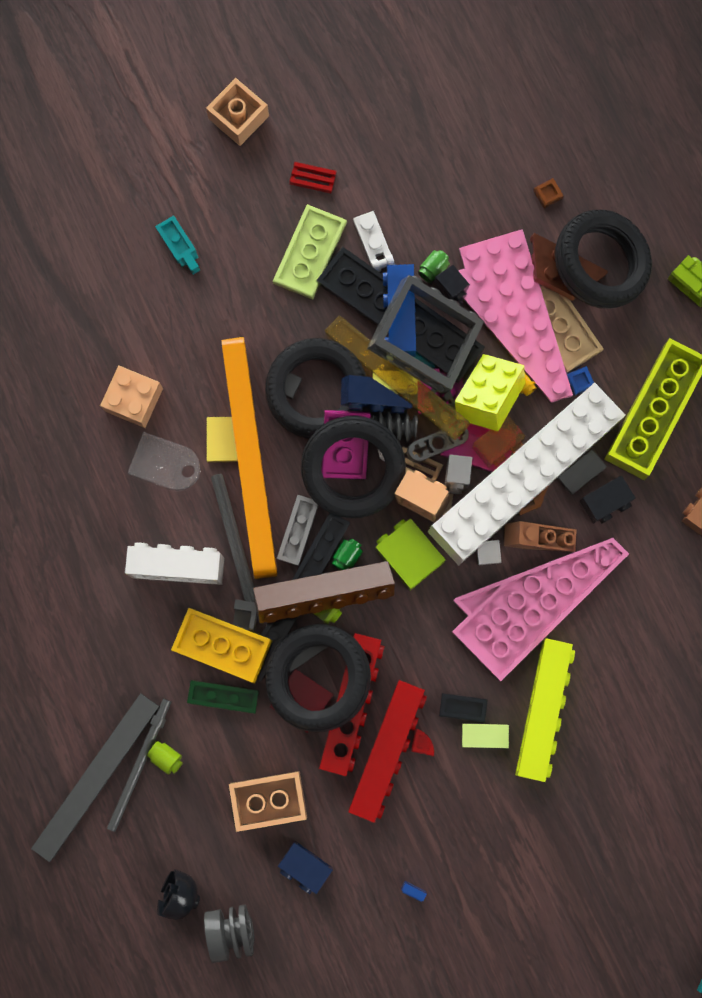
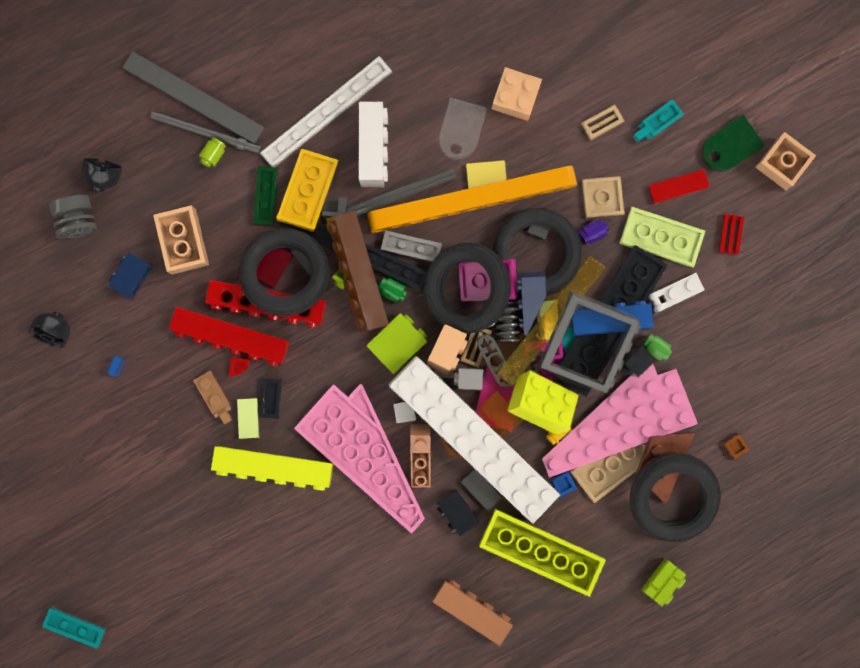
camera: 85 degrees right, 5 degrees up
(130, 619) = (326, 112): none -> white tile
(181, 322) = (588, 131): none -> tan tile
(212, 167) = (732, 144): none -> dark green tile
(254, 229) = (678, 186): none -> red tile
(259, 312) = (602, 197): none -> tan tile
(298, 324) = (593, 231): none -> dark purple brick
(363, 970) = (50, 329): none -> black cylinder
(456, 775) = (214, 396): none -> medium nougat hinge

